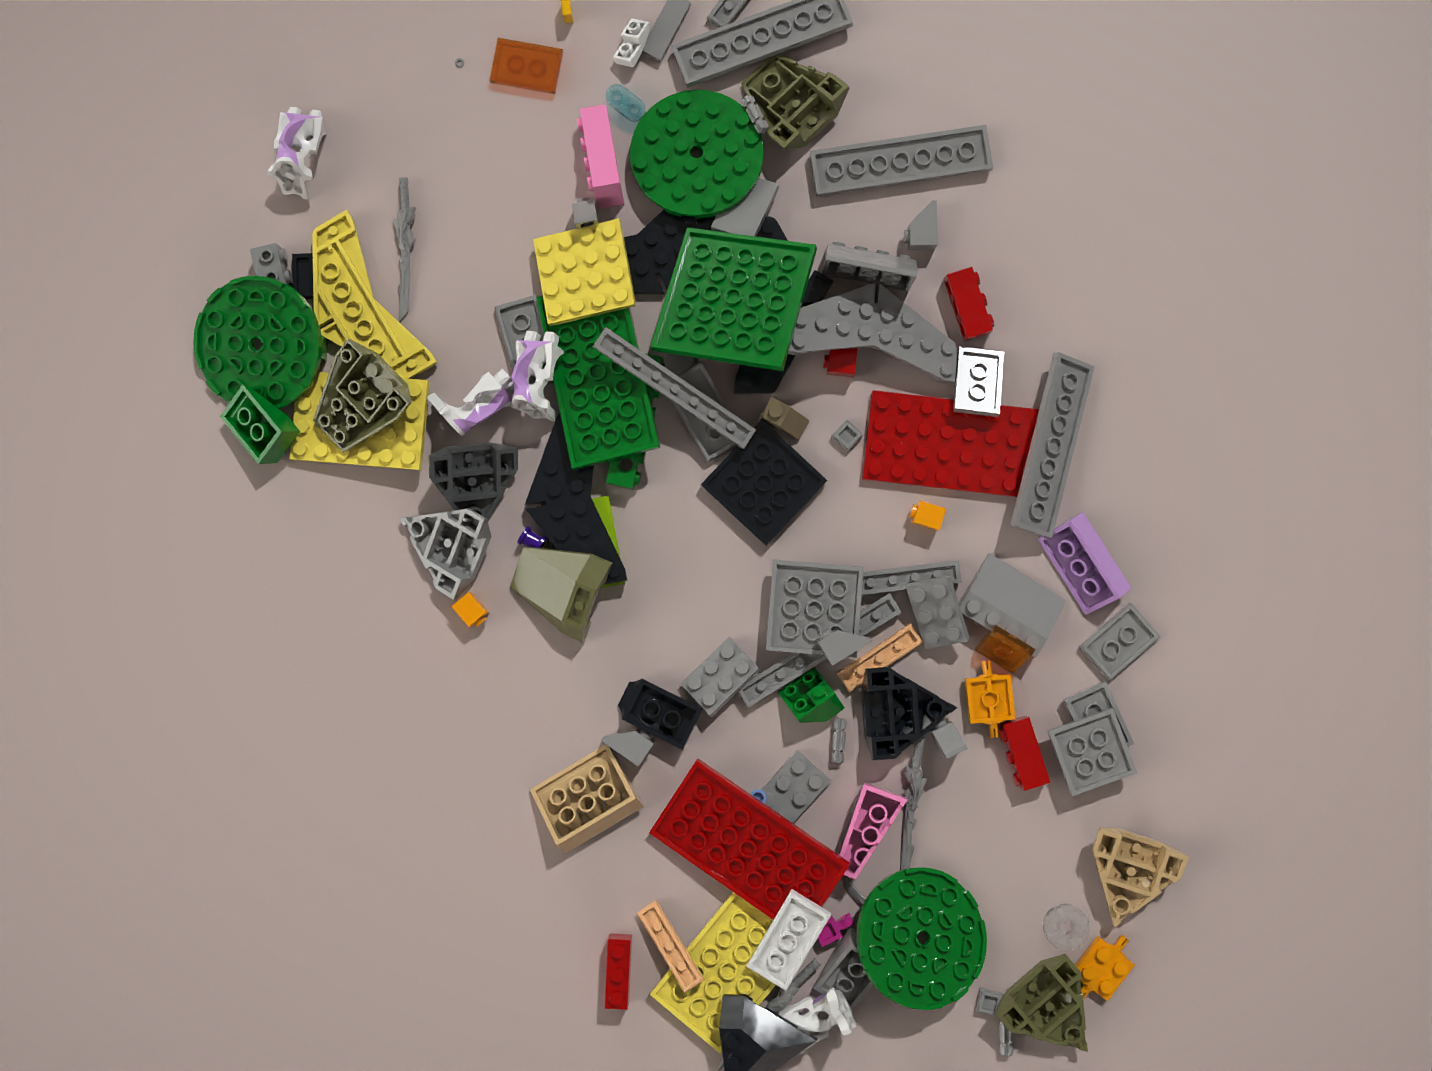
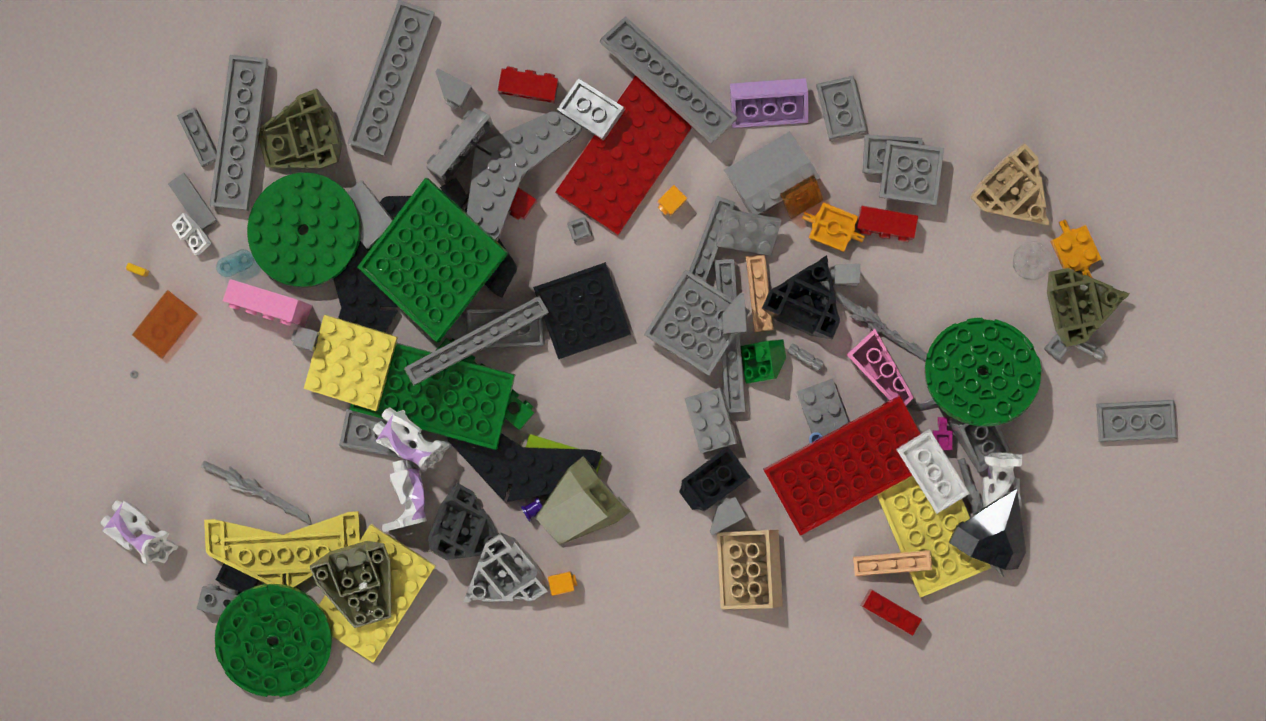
camera: 70 degrees left, 0 degrees up
(259, 425) = (336, 671): green slope -> none
(755, 114) = (298, 169): light grey axle -> none
(784, 418) = (541, 269): dark tan slope -> none

